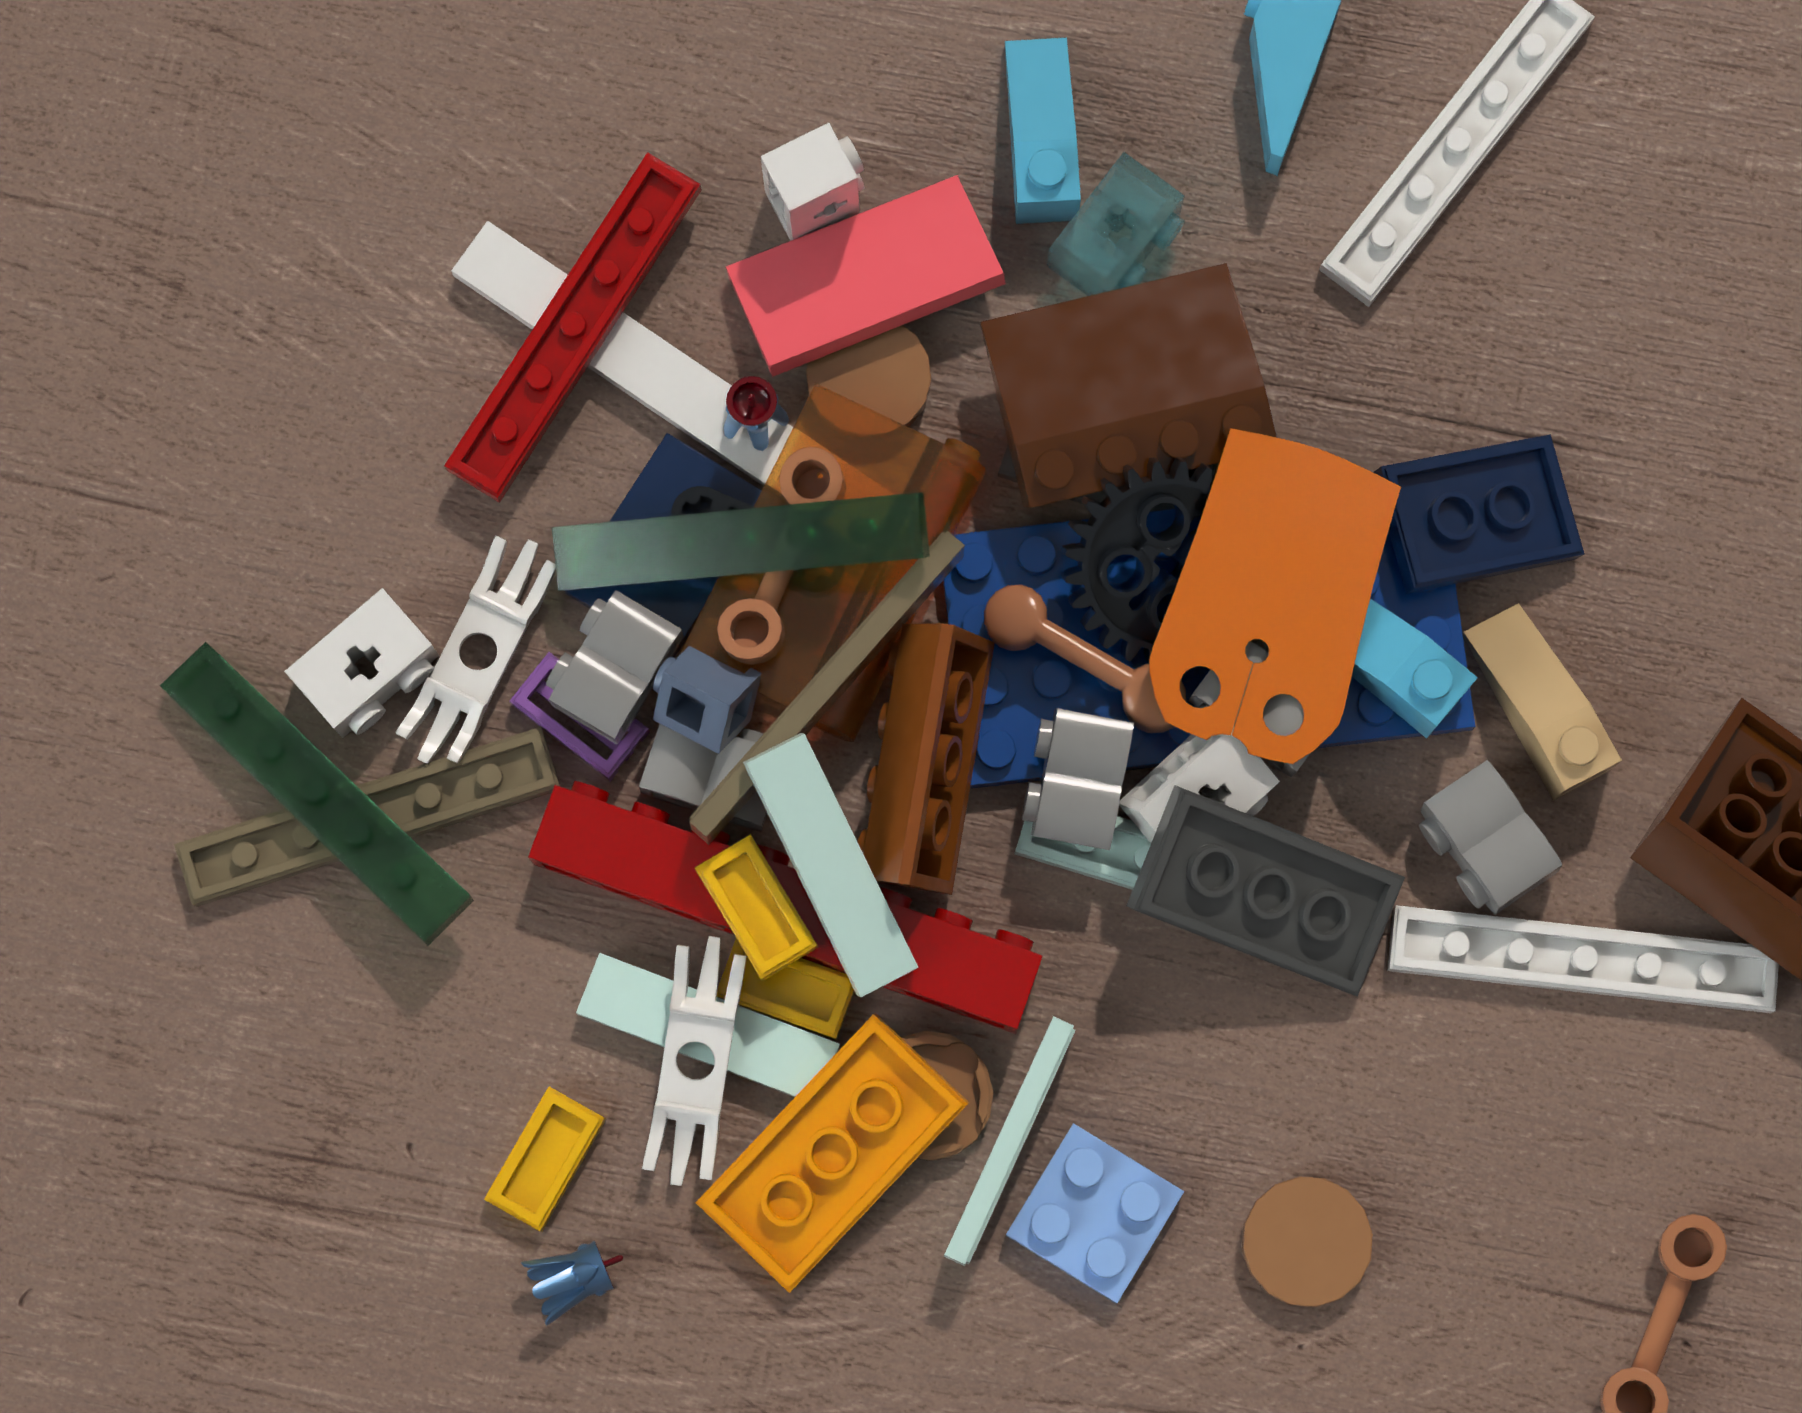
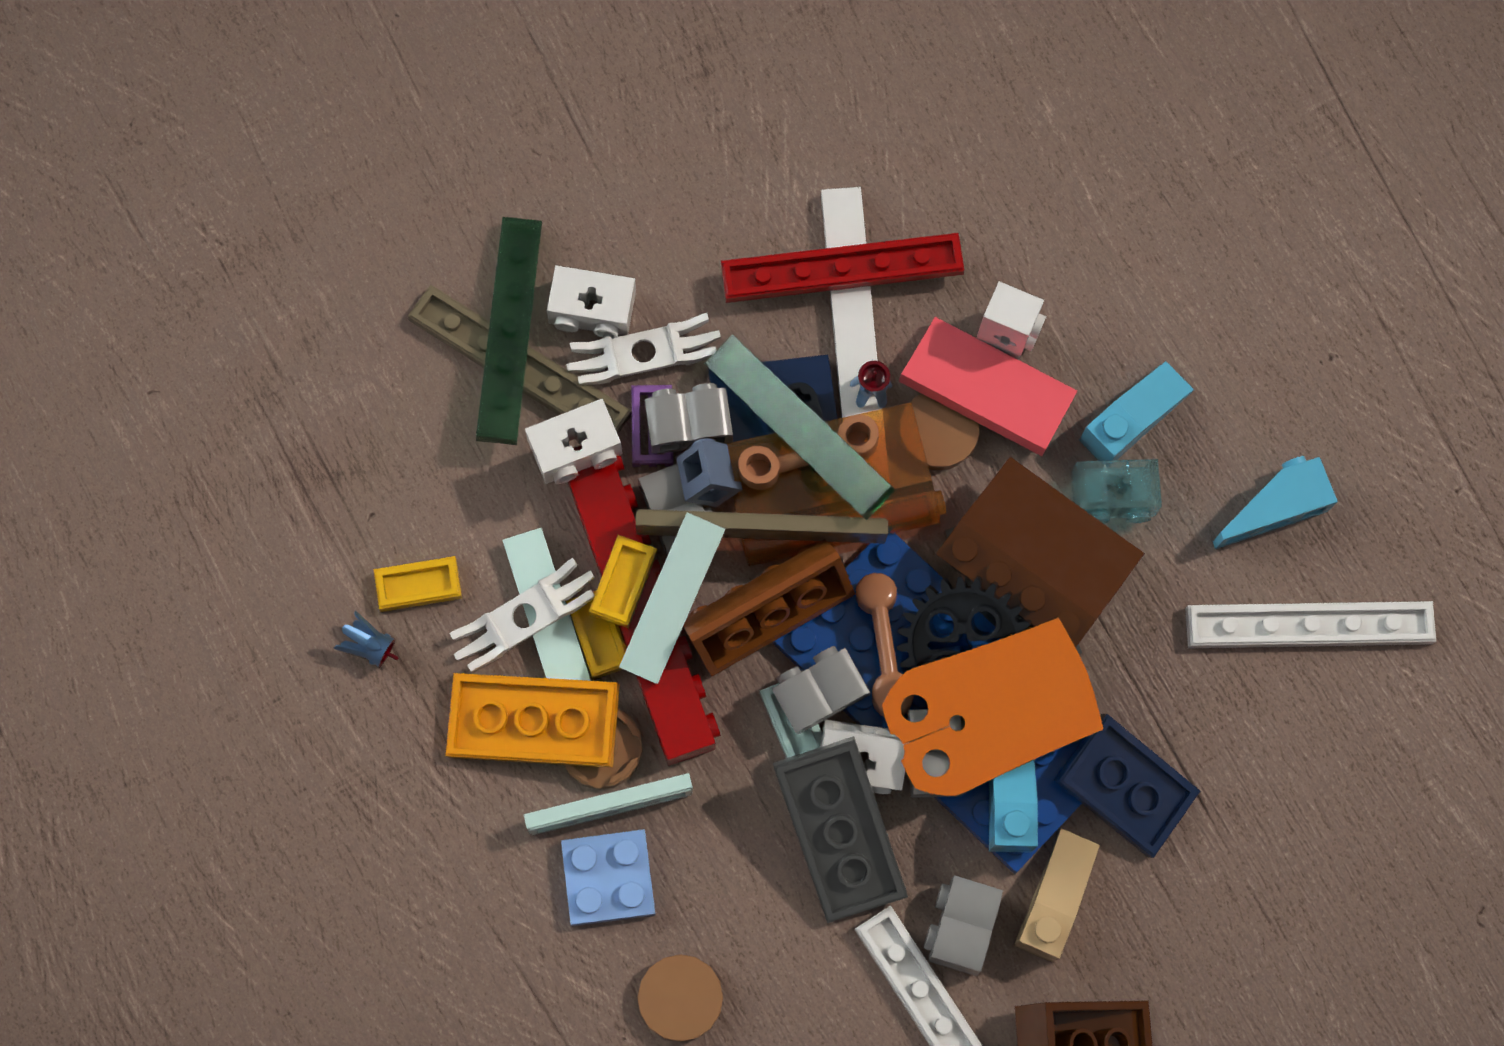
camera: 45 degrees right, 5 degrees down
(509, 852) = (590, 427): none -> white brick

